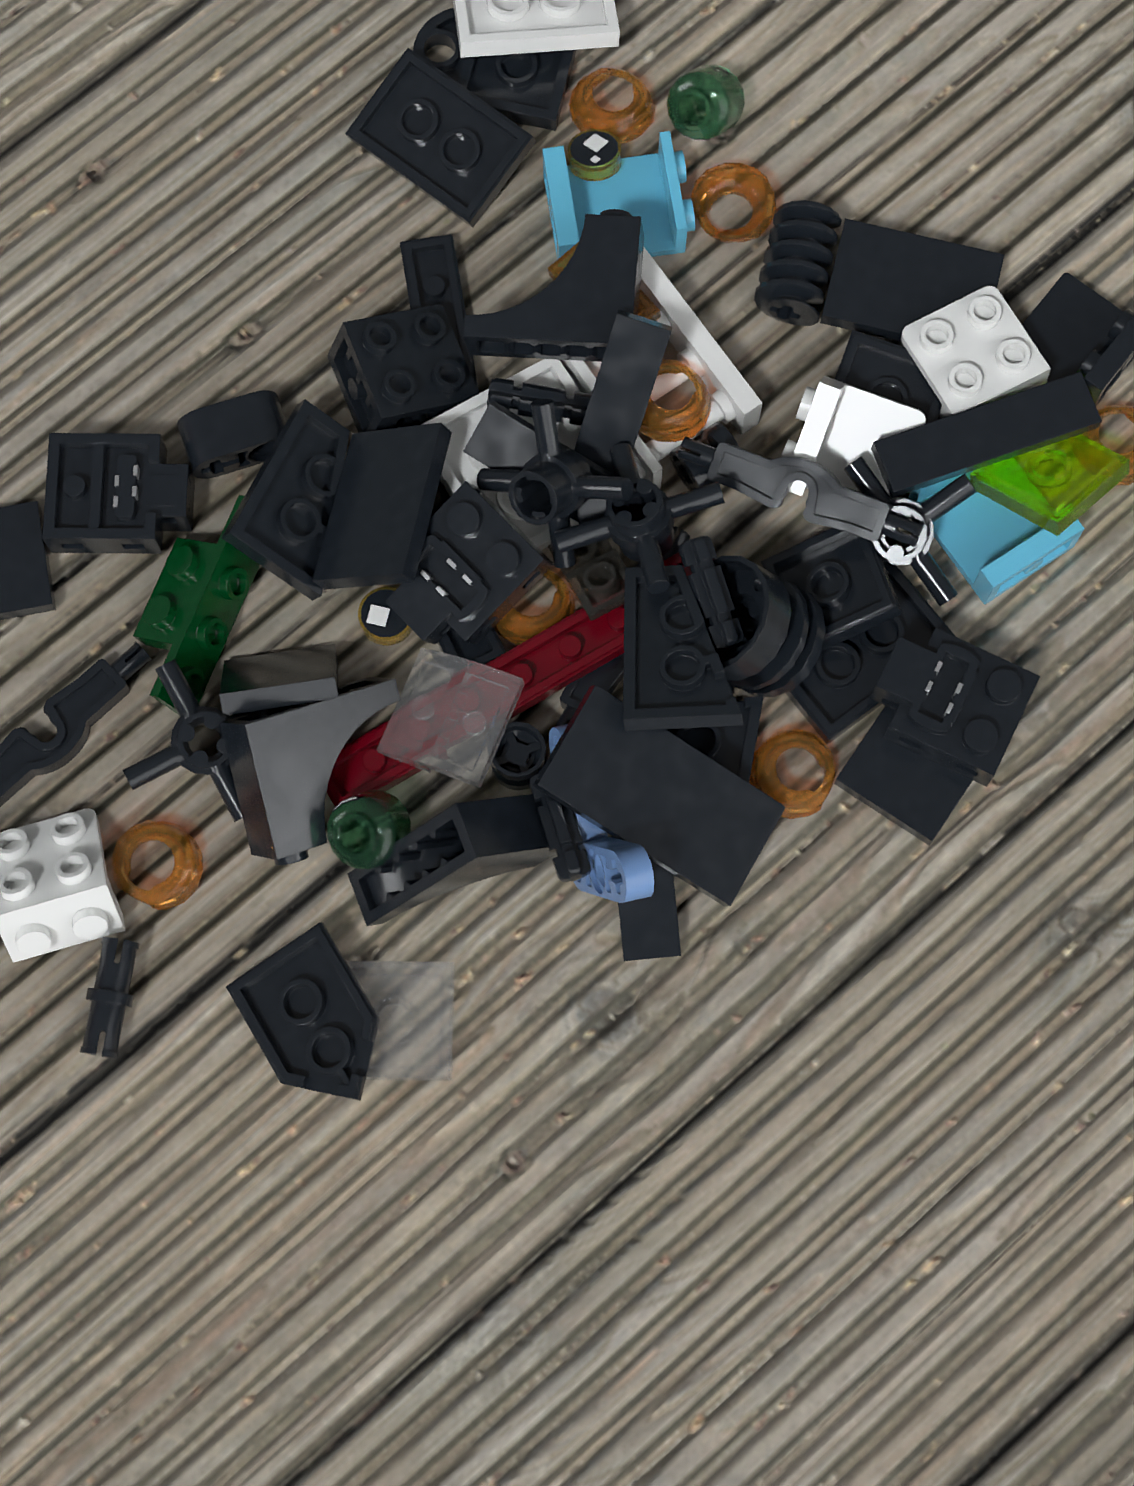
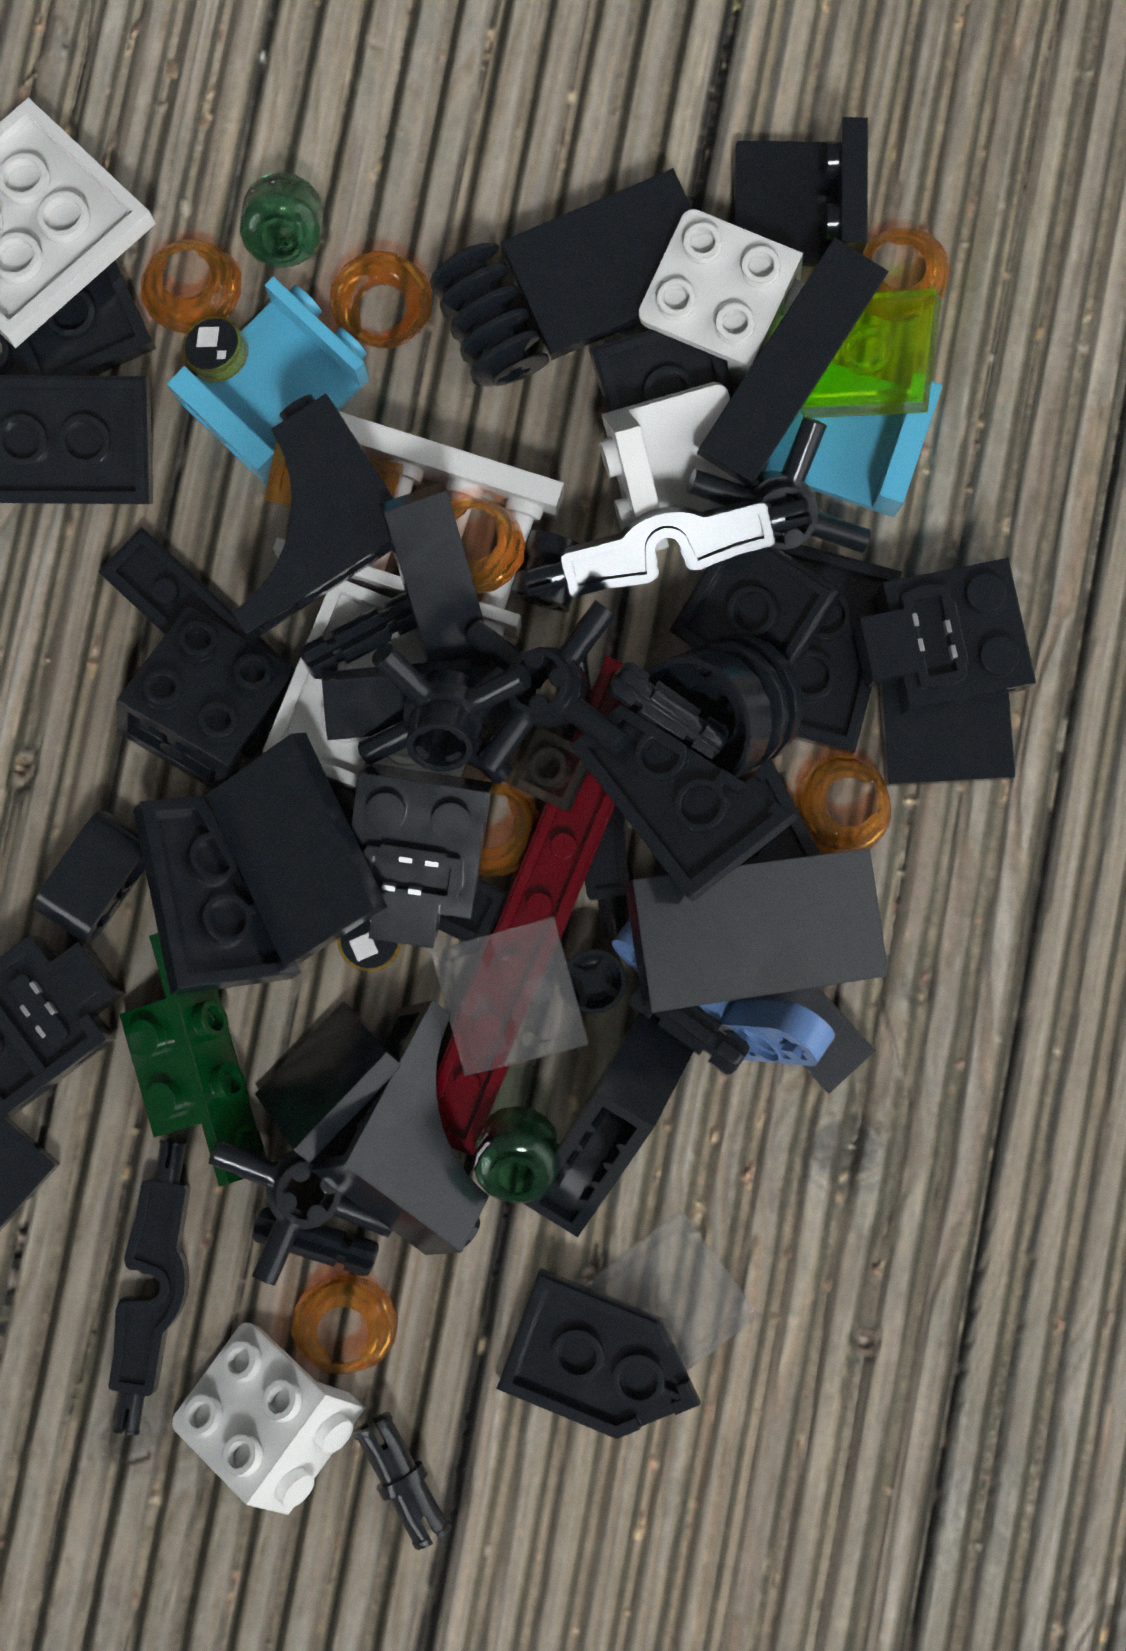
camera: 40 degrees left, 10 degrees up
(189, 798) = (324, 1245): none -> black axle

